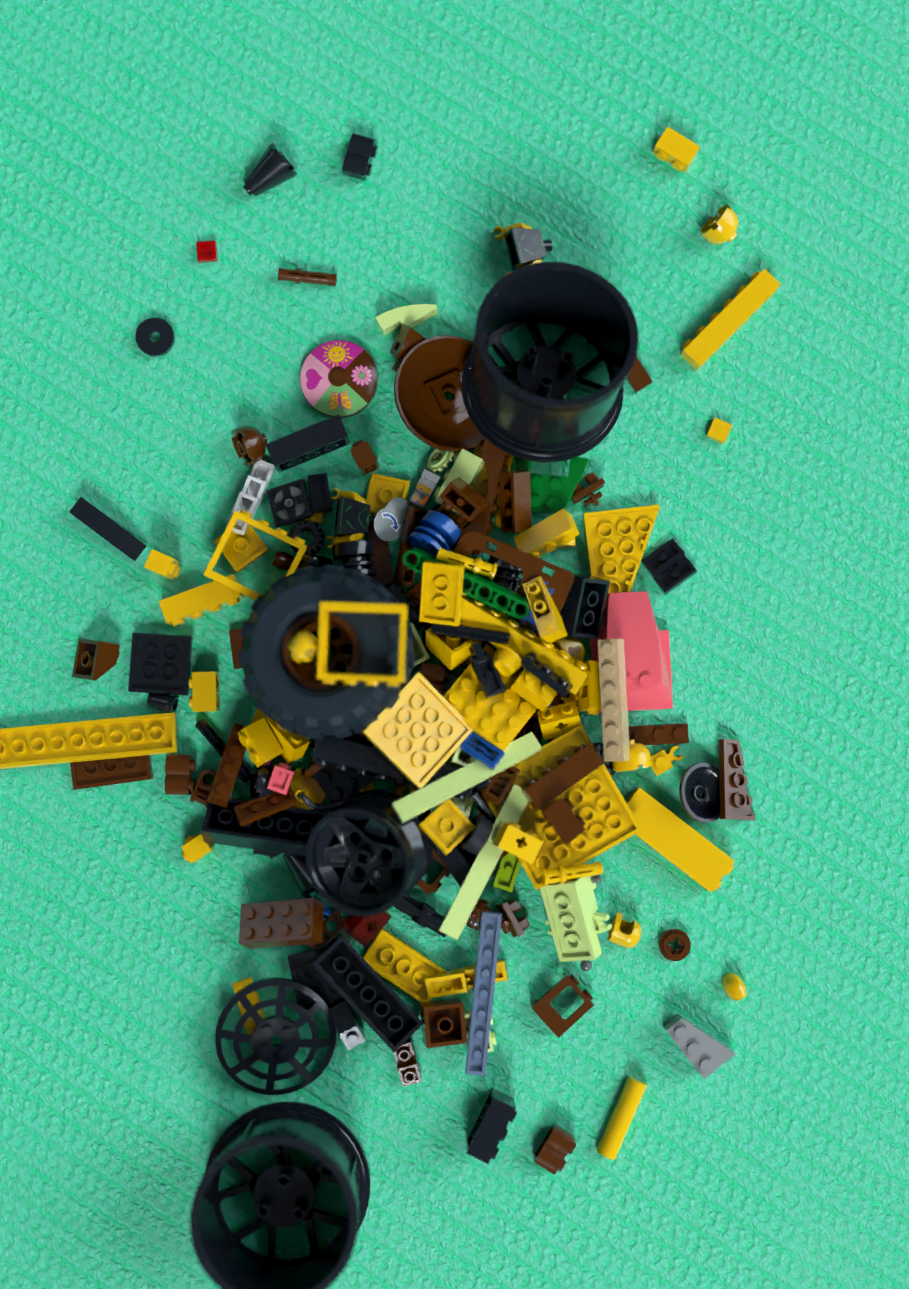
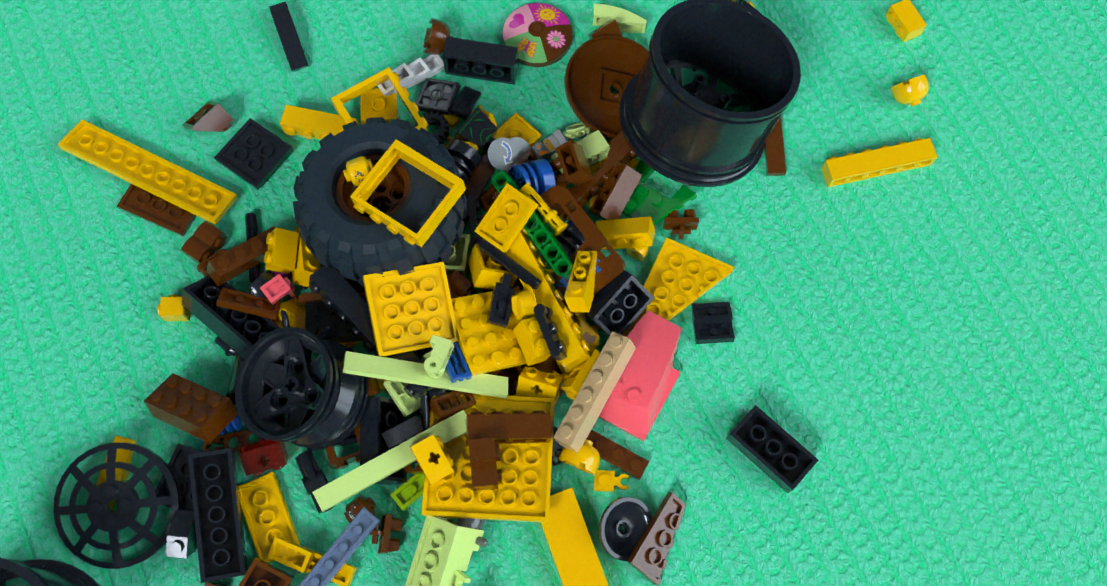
camera: 30 degrees right, 15 degrees down
(163, 565) = (308, 81): yellow brick -> none
(164, 702) = (234, 182): black cone -> none
(204, 691) = (271, 193): yellow brick -> none
(364, 457) = (517, 94): reddish brown brick -> none
(446, 826) = (381, 408): yellow tile -> none
(470, 756) = (439, 357): none -> yellowish green leg
(562, 874) = (485, 528): yellow pin -> none
(719, 430) = (819, 241): yellow tile -> none
(802, 655) = (789, 458): none -> black brick

